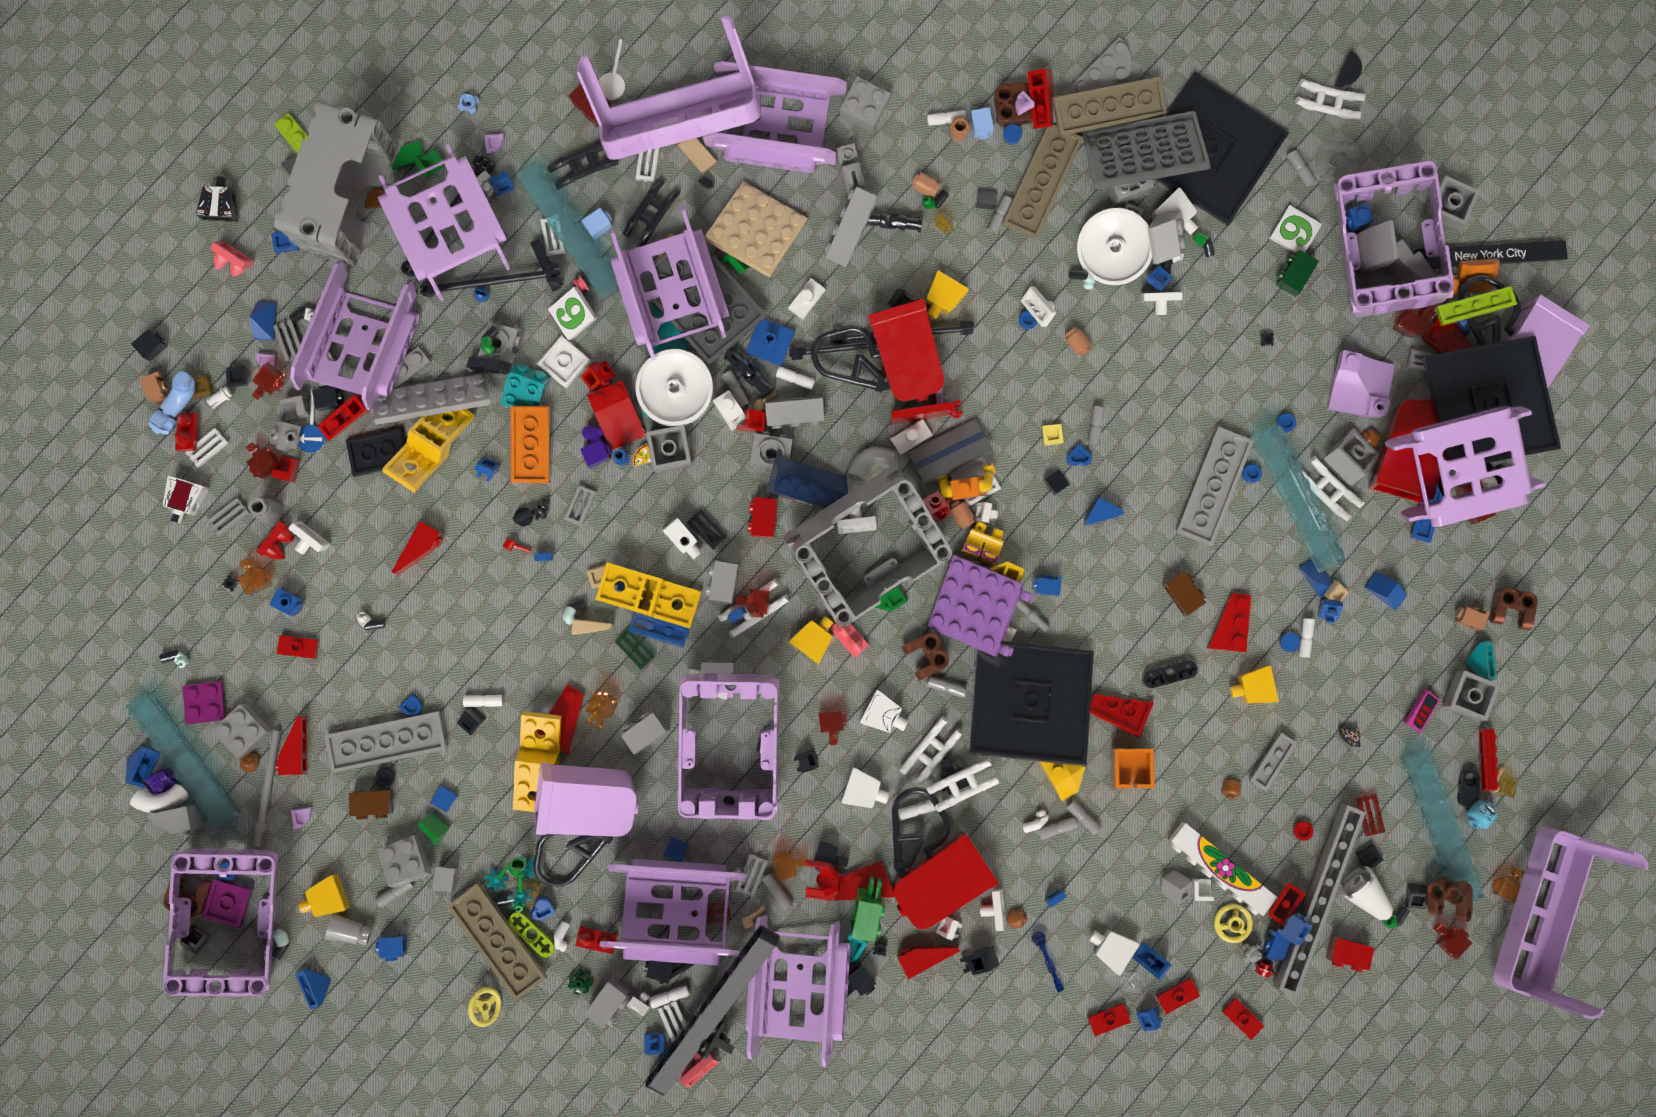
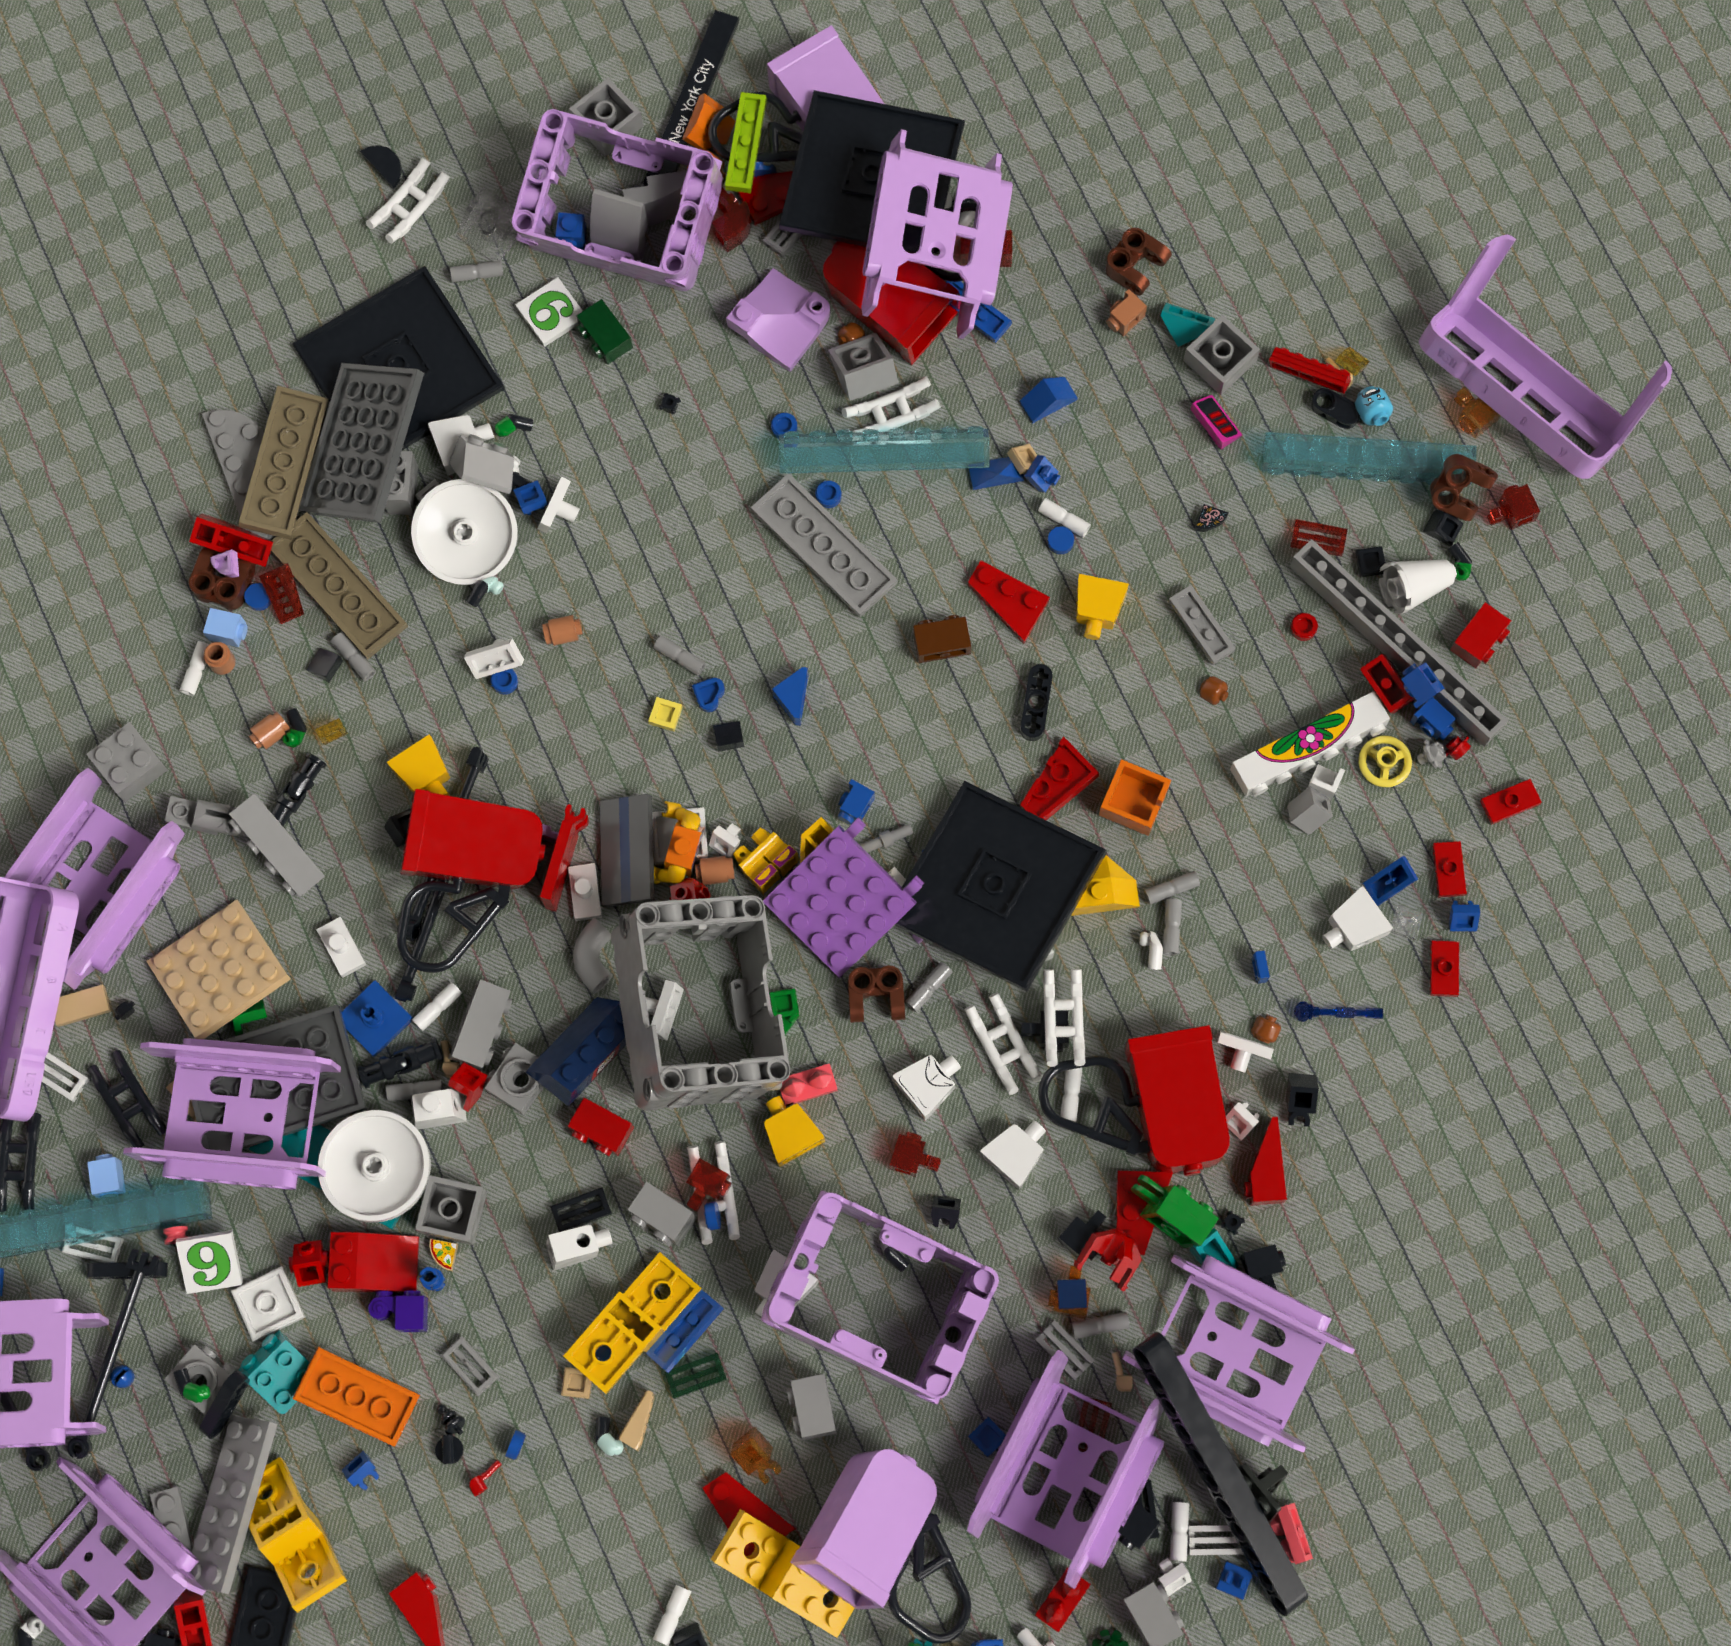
camera: 60 degrees left, 10 degrees down
(786, 866) = (1072, 1294): none -> dark blue tile
(1017, 145) = (272, 589): none -> clear red slope

